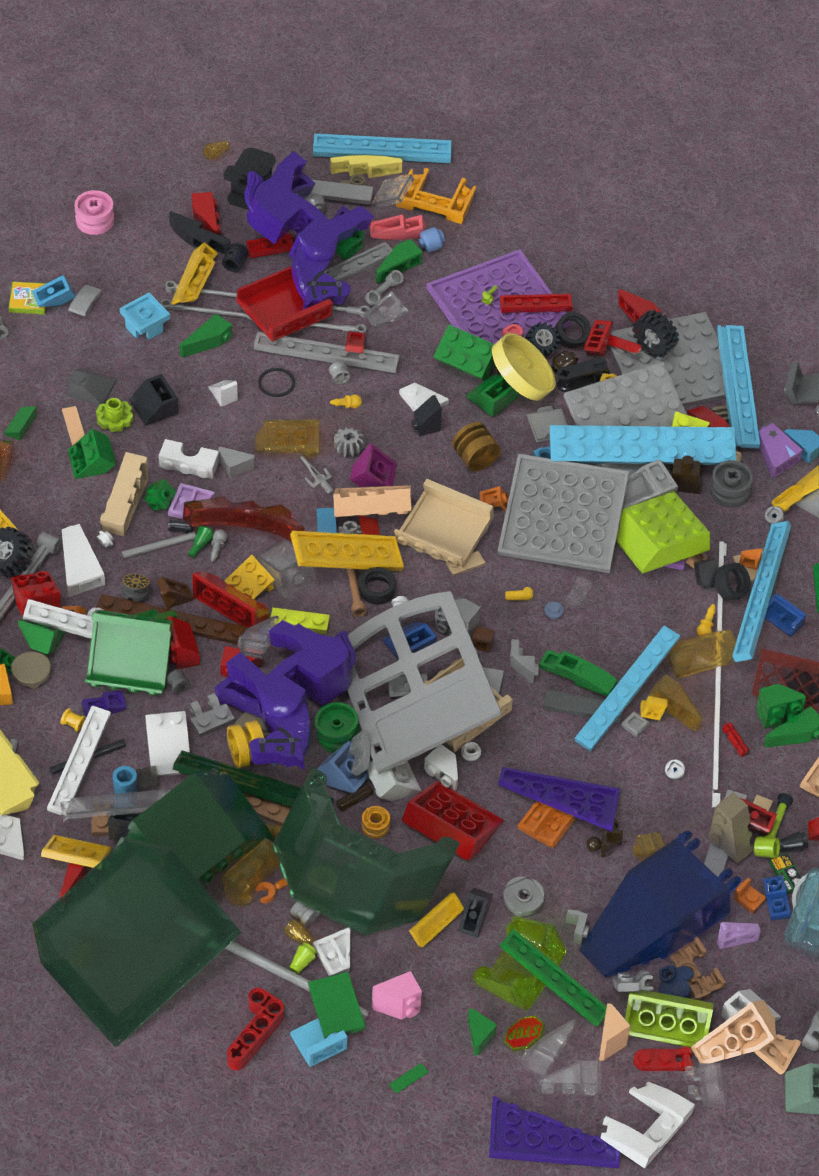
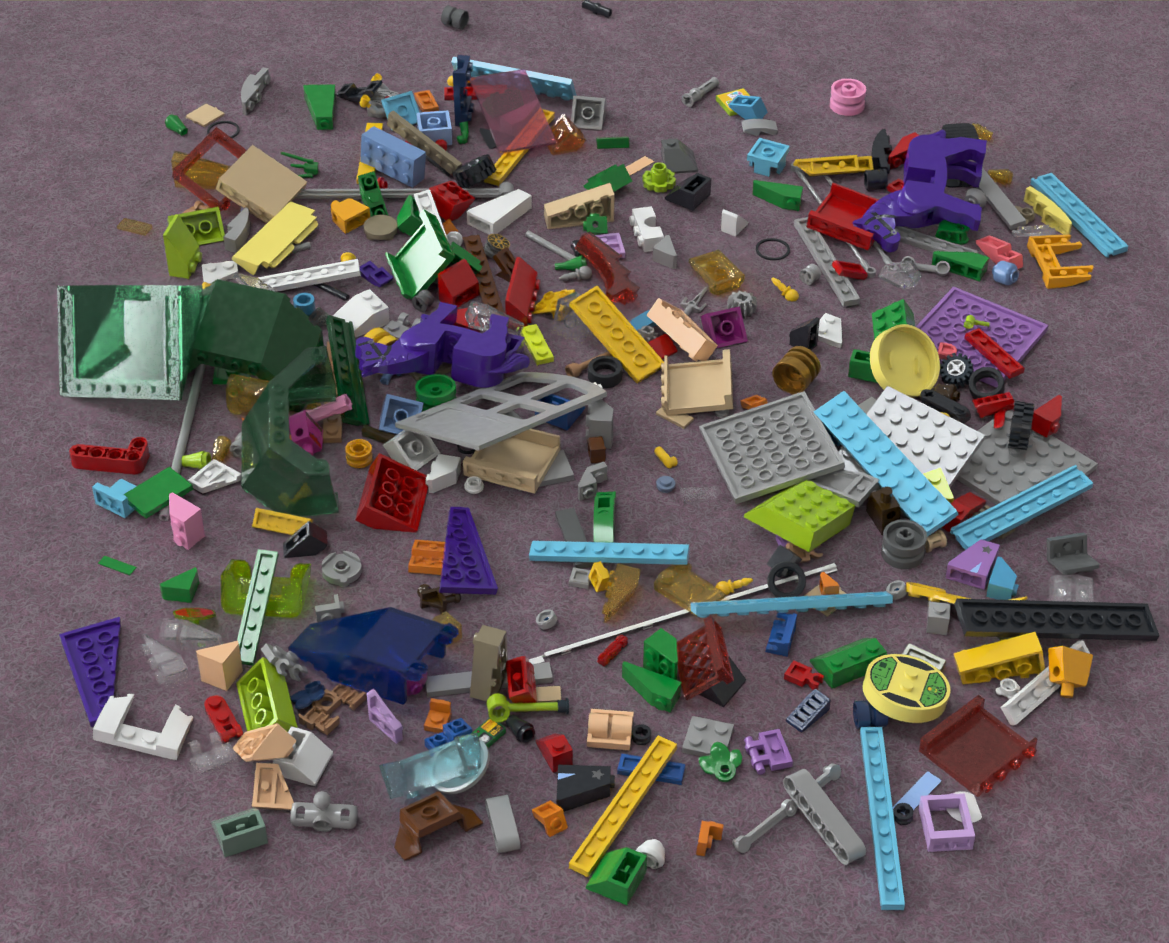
camera: 65 degrees right, 10 degrees down
(105, 539) = (533, 217): white plate -> none
(361, 750) = (417, 407): light grey slope -> none

